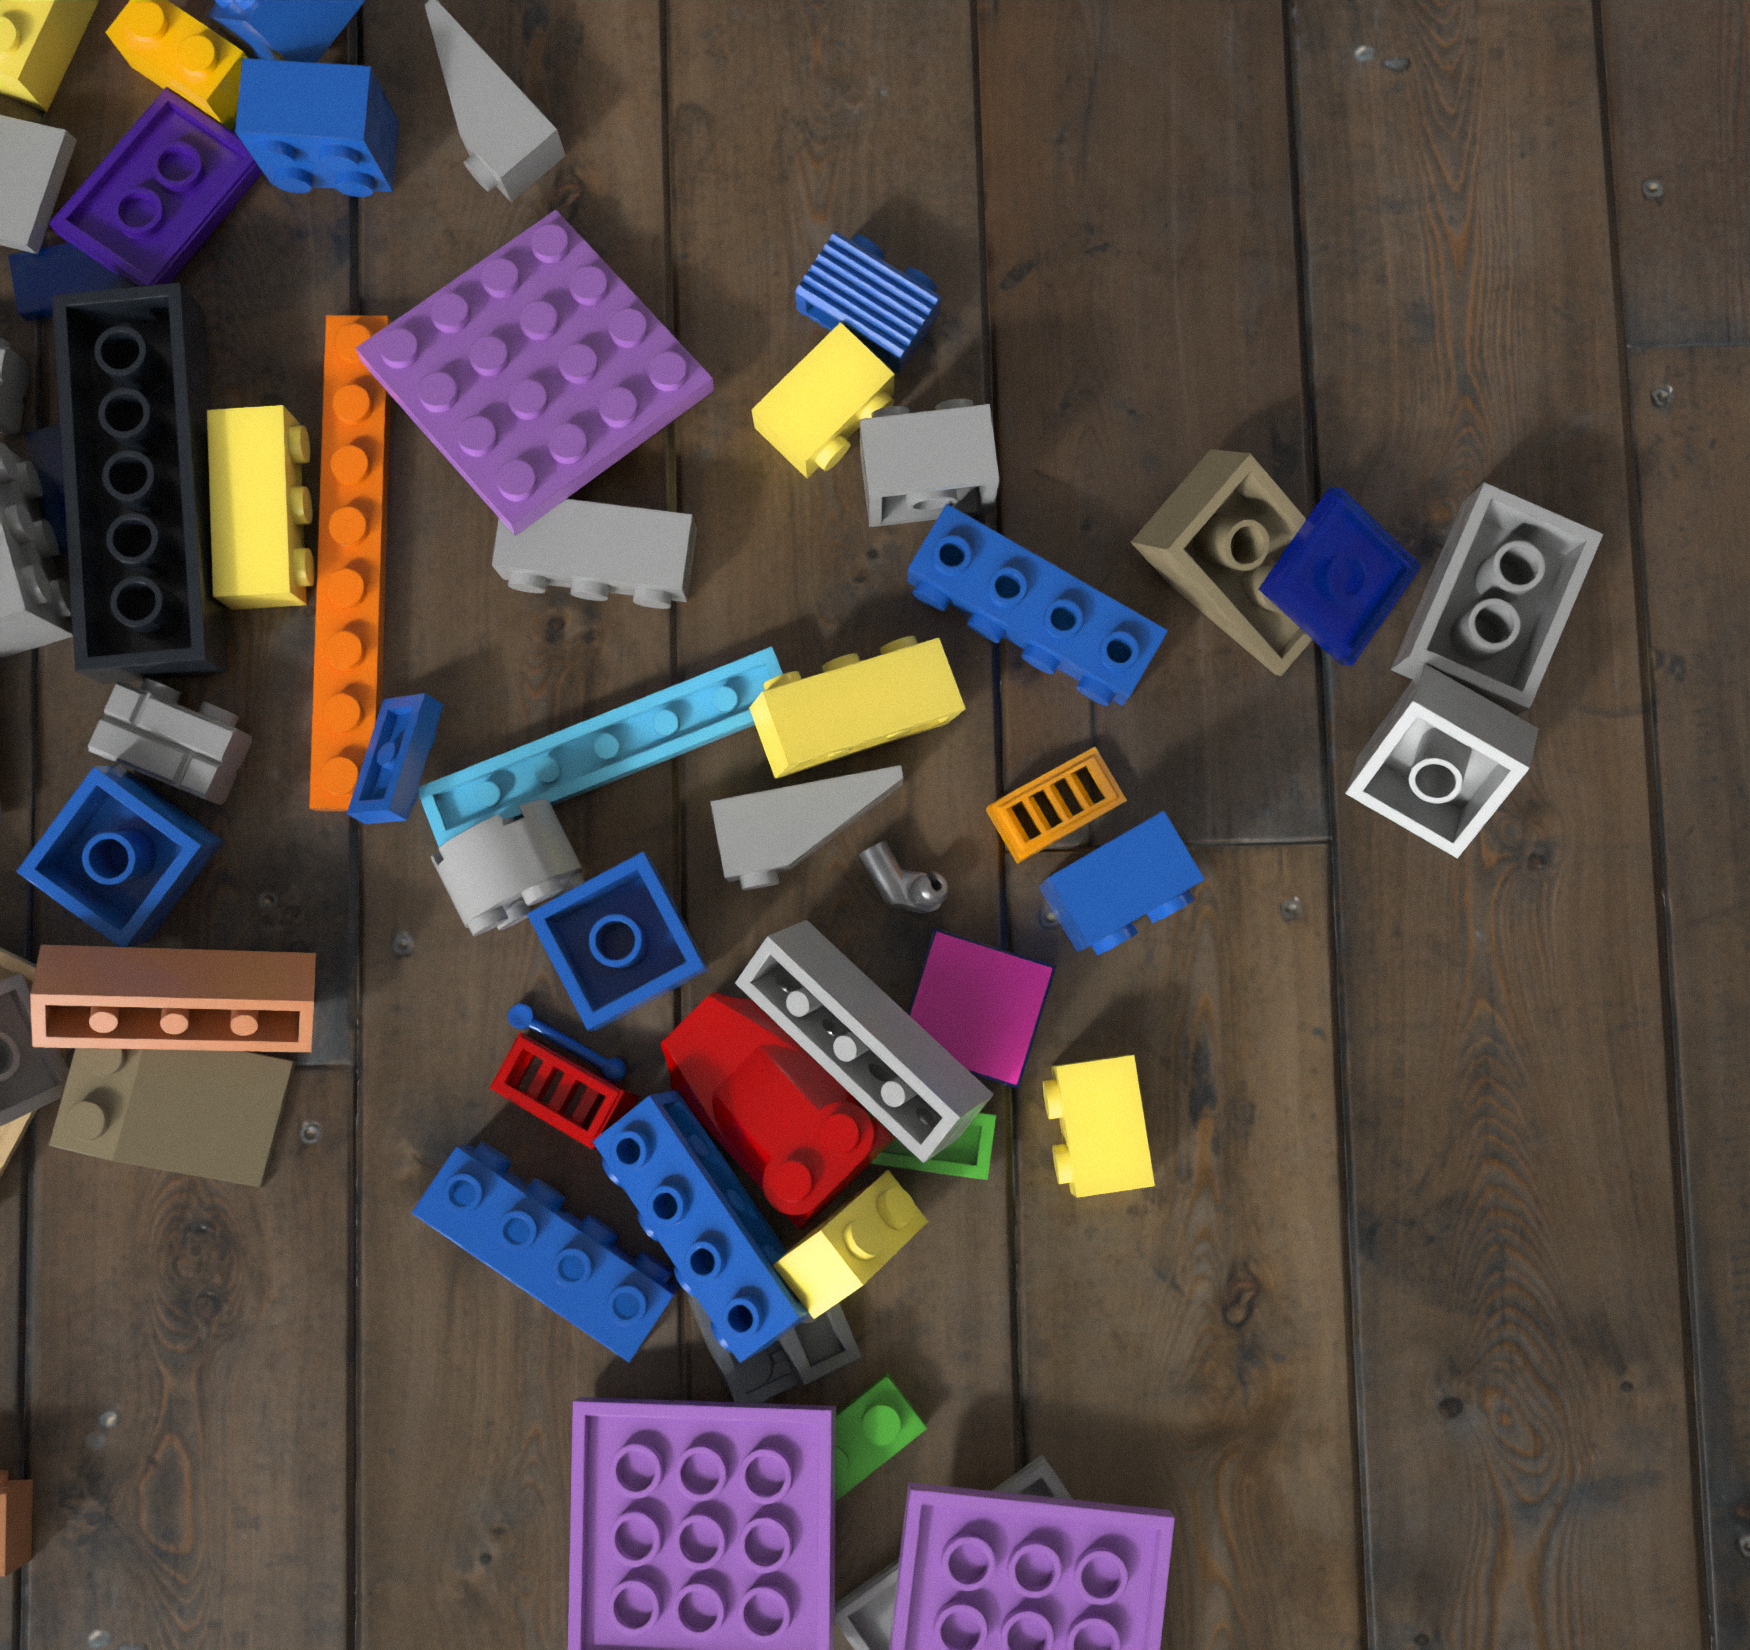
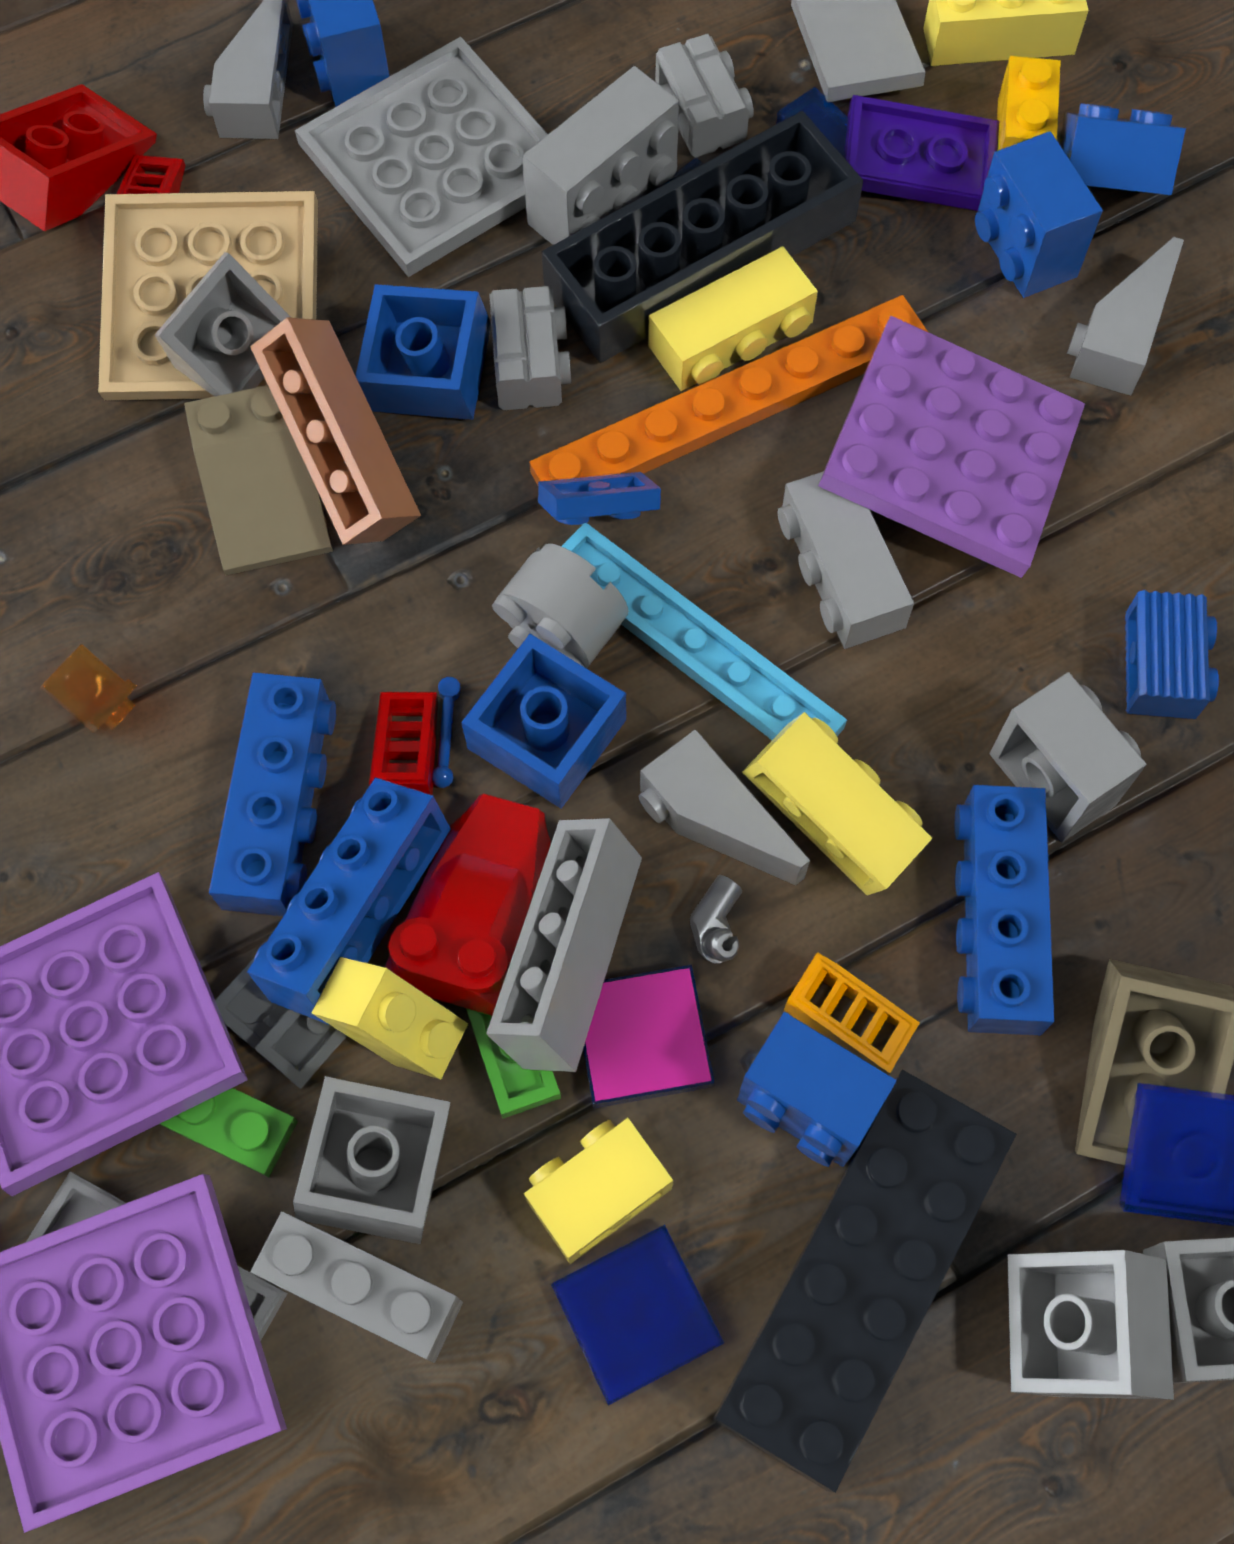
camera: 65 degrees right, 15 degrees down
(333, 1386) = (90, 690): none -> clear orange bracket
(823, 401) = (1052, 644): light yellow brick -> none
(974, 1321) = (371, 1160): none -> light grey brick
(1078, 1389) = (357, 1286): none -> light grey brick
(1222, 1145) = (637, 1314): none -> clear blue tile
(1303, 932) = (864, 1281): none -> black brick

